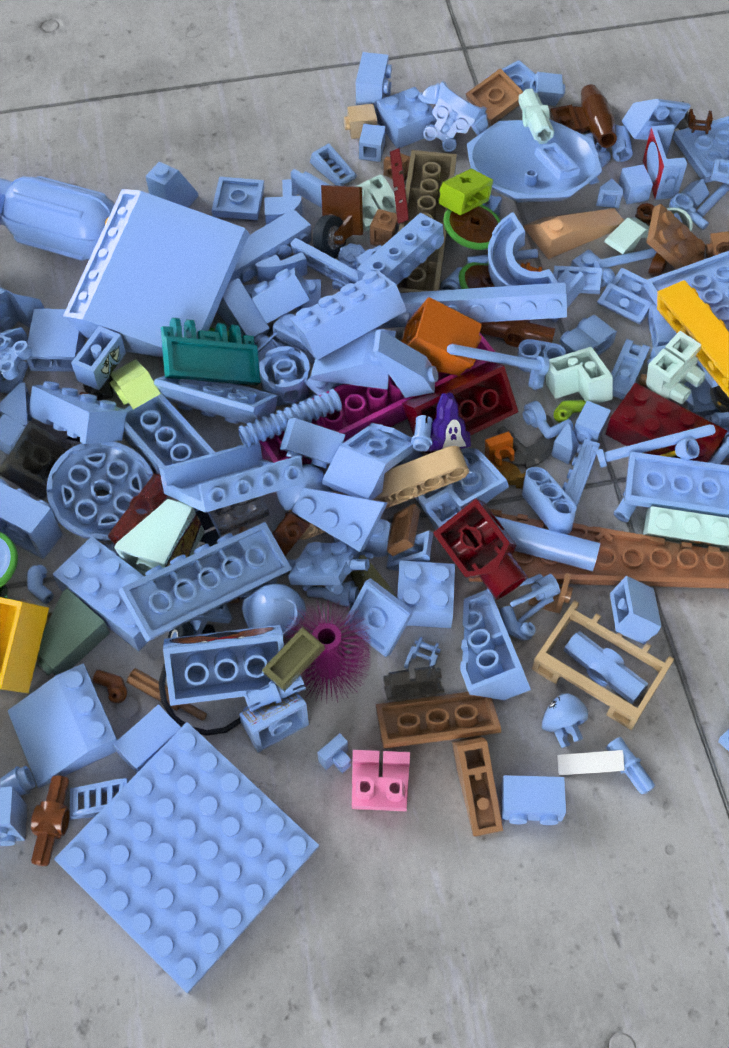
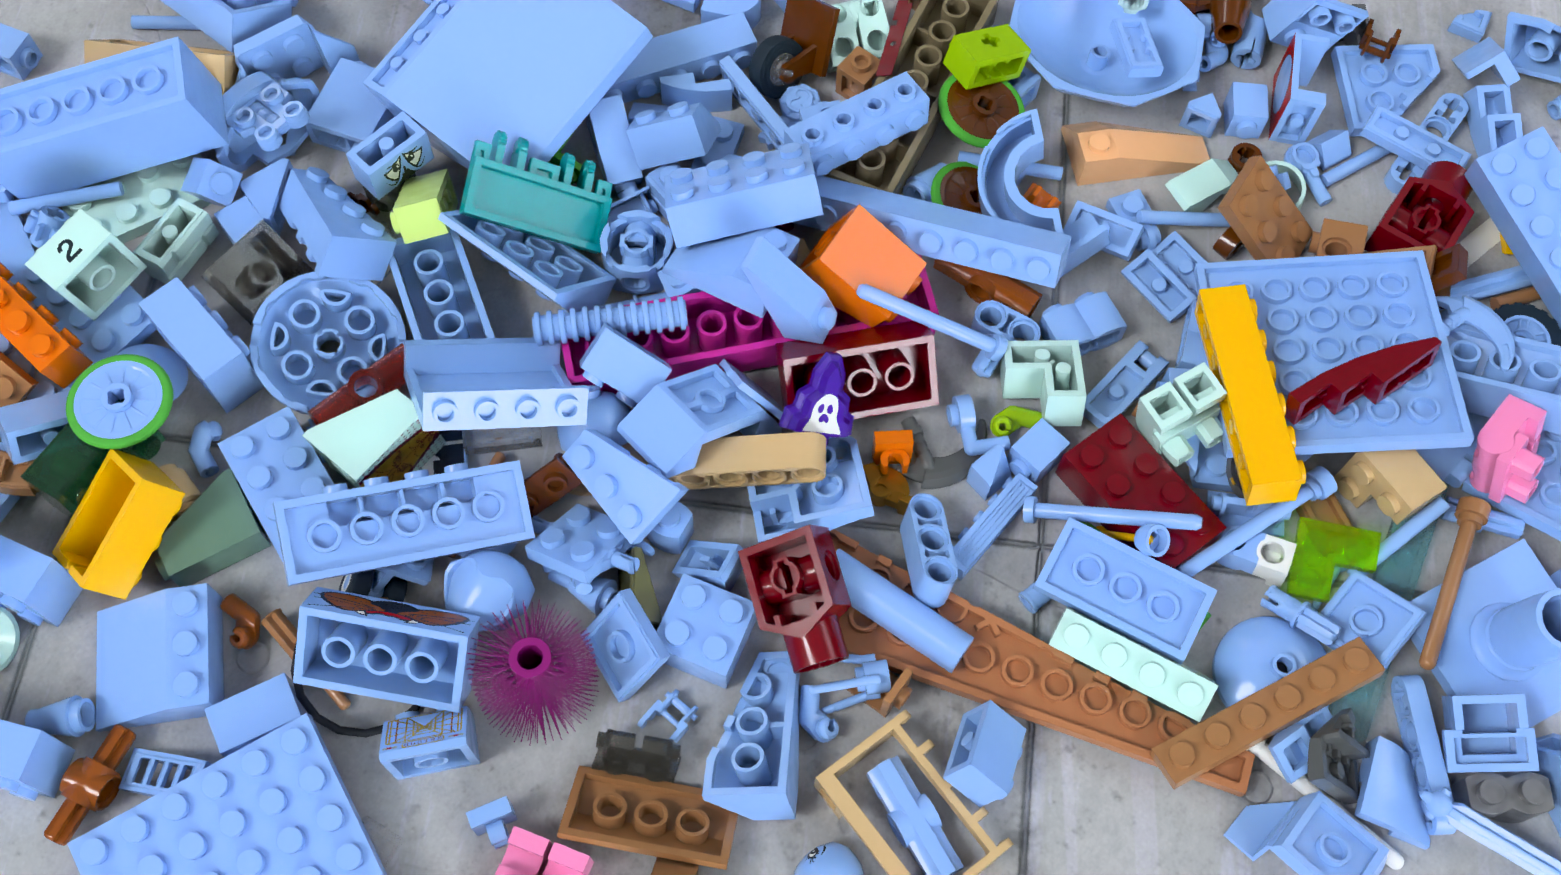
camera: 15 degrees right, 5 degrees up
(272, 693) = (435, 710): light blue pin -> none
(293, 659) = (470, 676): olive tile -> none
(403, 530) = (710, 528): medium nougat tile -> none
(421, 439) = (777, 407): light blue pin -> none

